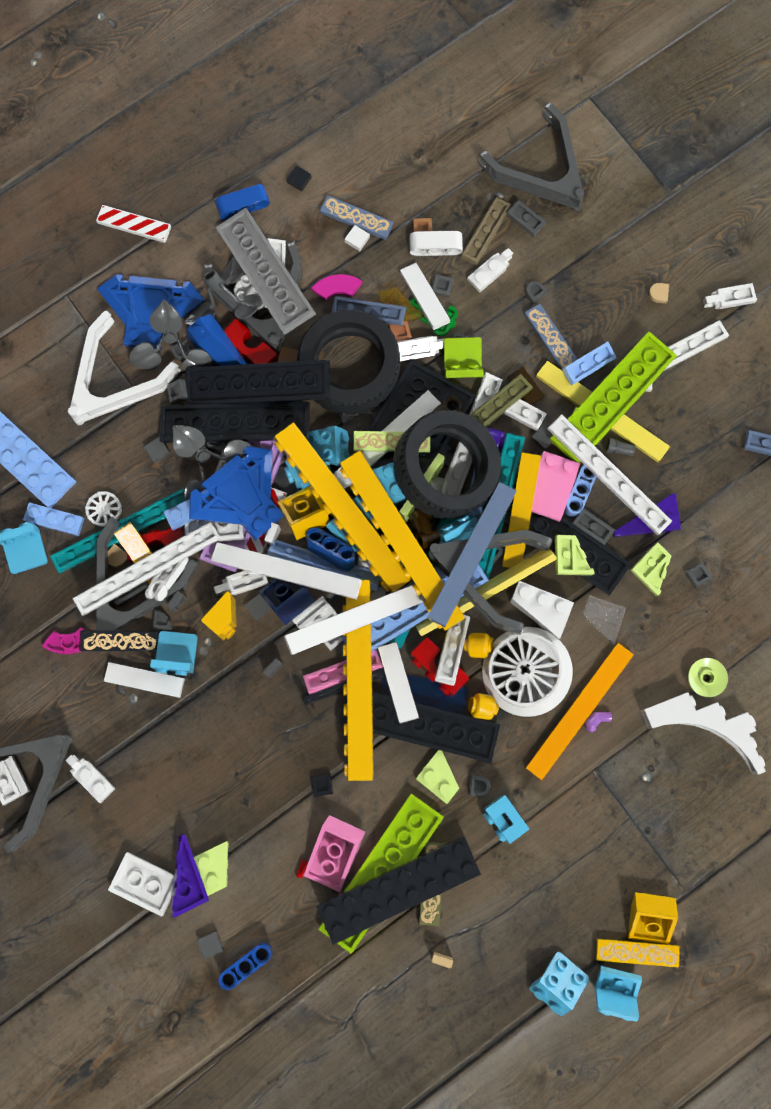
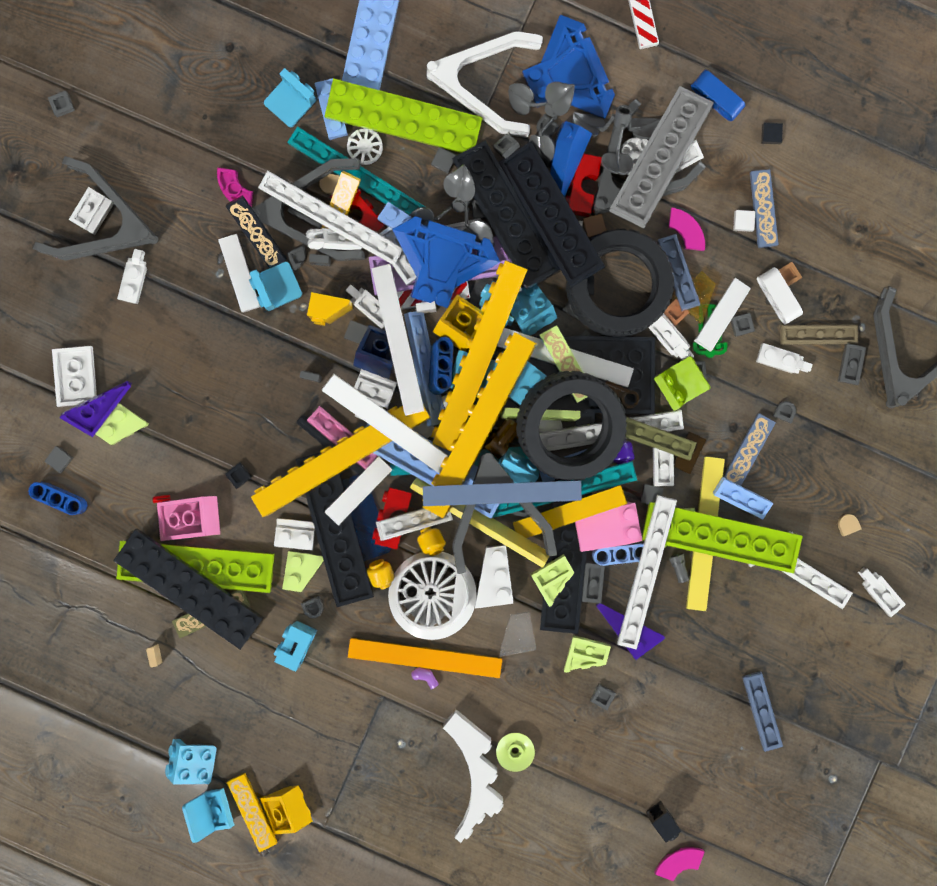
camera: 50 degrees right, 10 degrees up
(98, 462) = (402, 117): none -> lime plate
(403, 764) = (294, 534): none -> white plate

